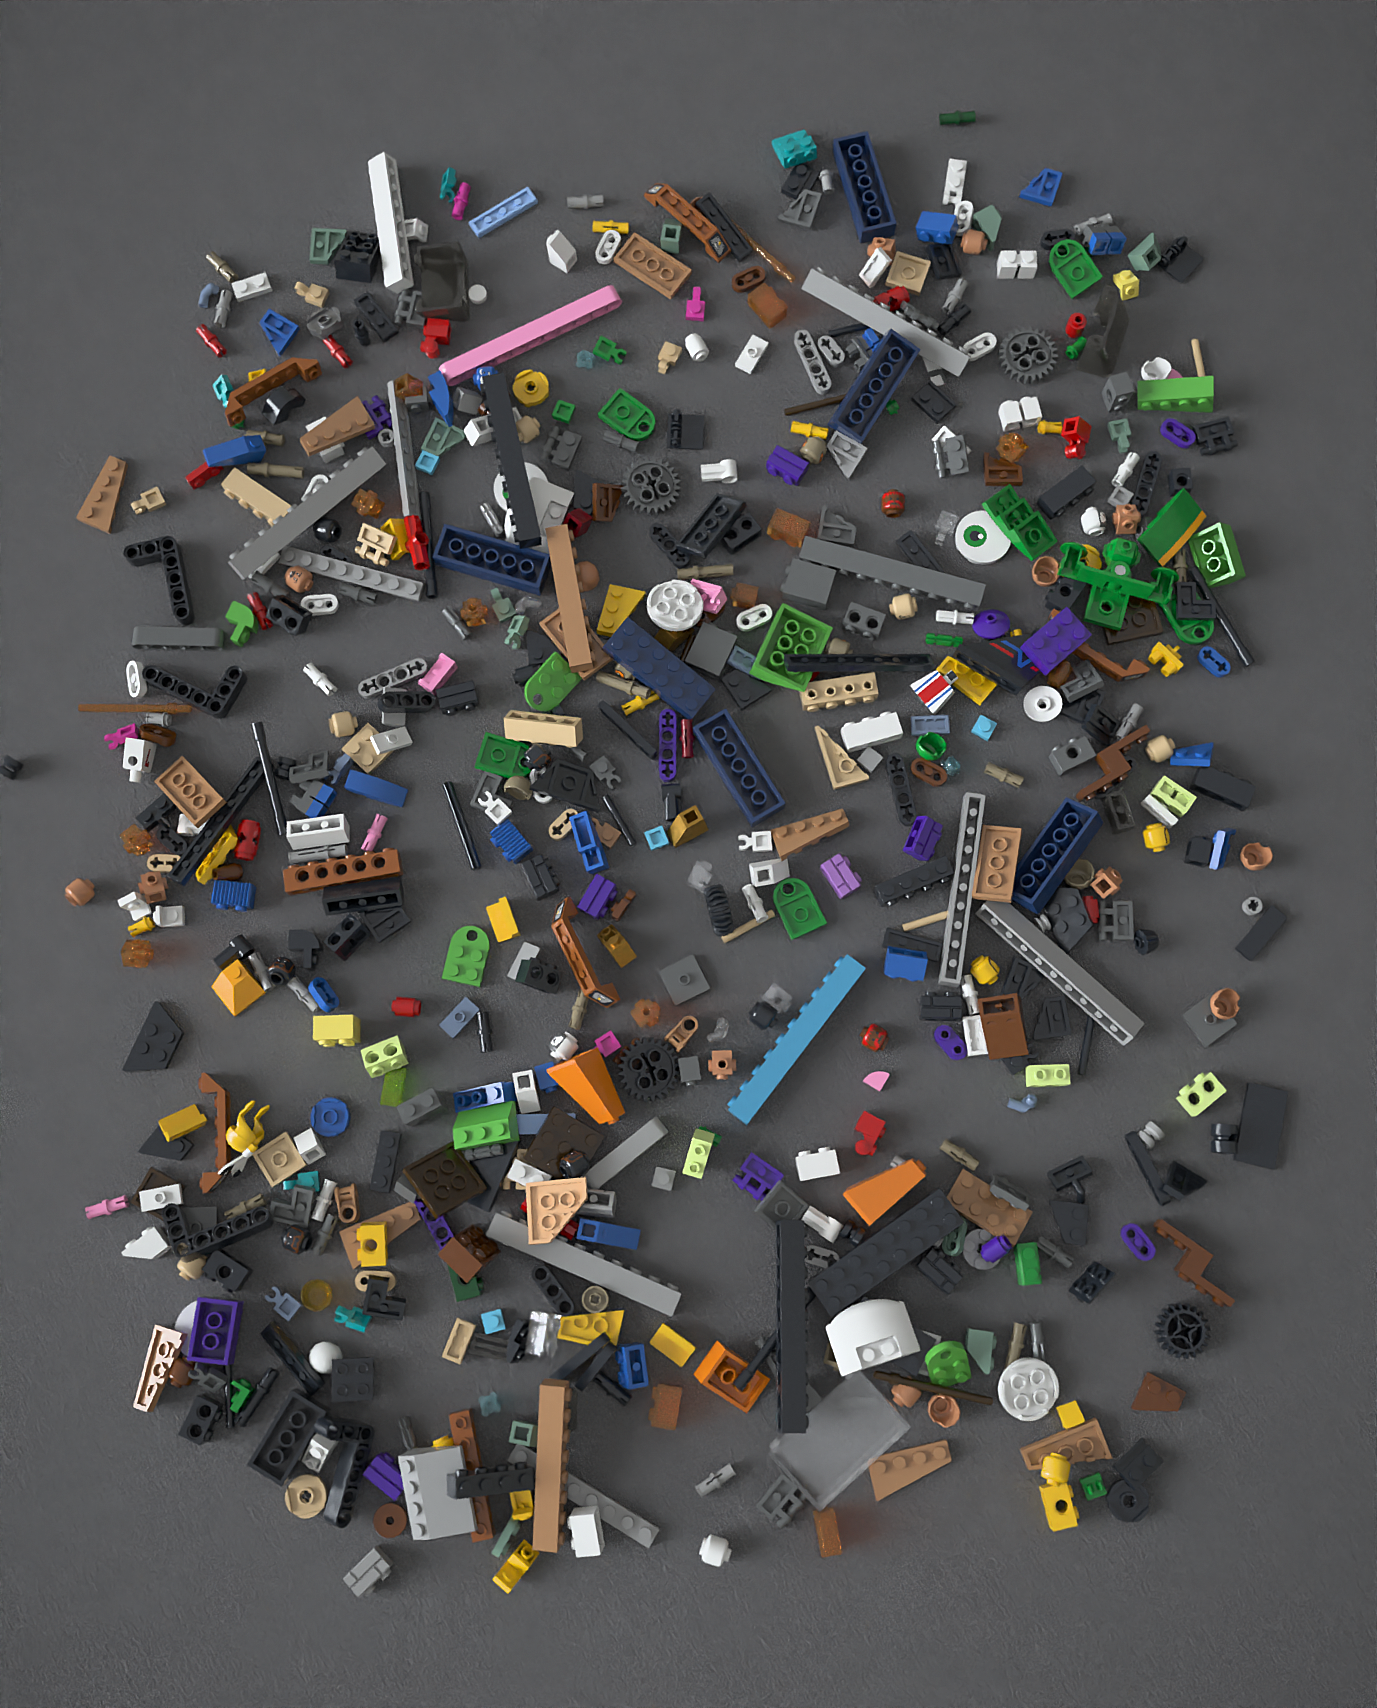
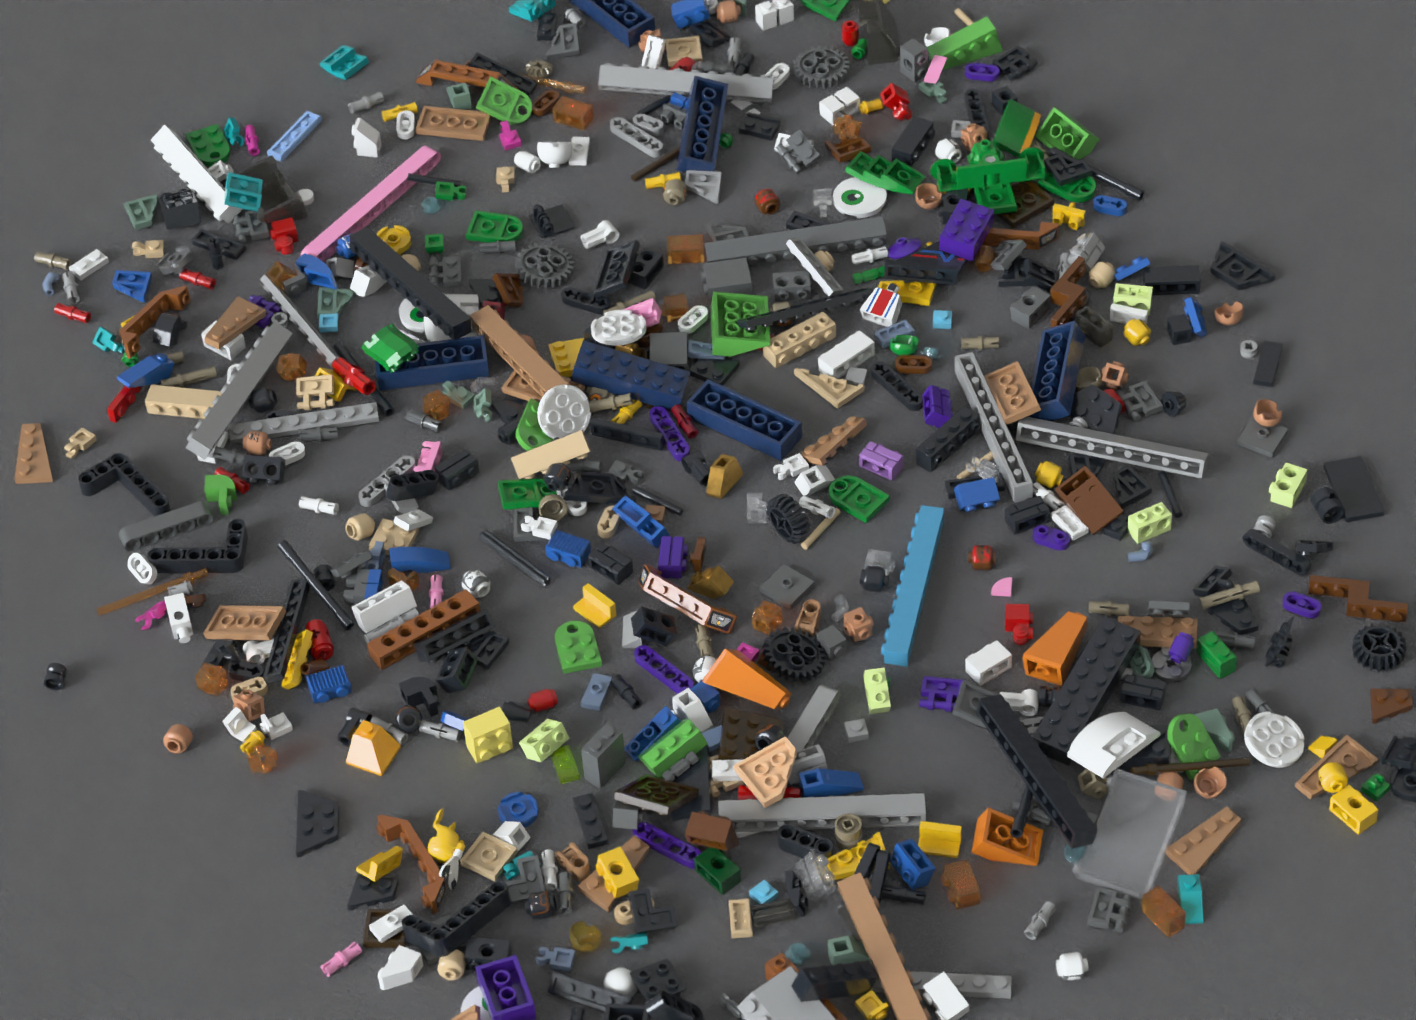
camera: 25 degrees left, 30 degrees down
(348, 804) = (411, 580): none -> clear orange bracket
(377, 1007) = (516, 712): none -> black cone
(412, 841) = (476, 583): none -> white head
(414, 273) = (243, 192): none -> teal slope
(422, 187) = (209, 143): none -> green plate
(452, 538) = (391, 348): none -> green brick
(526, 1024) = (666, 668): none -> dark purple beam
(577, 684) = (563, 411): none -> white tile
(589, 139) = (344, 62): none -> teal slope
(596, 330) = (431, 180): none -> black bar
(656, 838) = (700, 498): medium azure plate -> none
(706, 265) = (503, 102): none -> bright green plate
(725, 350) = (554, 152): none -> white cylinder
(756, 233) = (539, 68): none -> dark tan gear
(787, 466) = (658, 209): dark purple brick -> none
(858, 1529) = (1190, 897): none -> teal slope
(892, 615) = (814, 266): none -> light grey plate
(928, 941) = (985, 468): none -> clear plate
(1046, 696) = (982, 282): white dish -> none
(1080, 1203) = (1237, 592): none -> dark tan pin
(1125, 469) = (953, 109): white pin -> none
(1132, 412) = (935, 69): none -> bright pink sticker
(1158, 715) = (1088, 248): none -> light grey brick
(1294, 802) = (1238, 268): none -> black wing

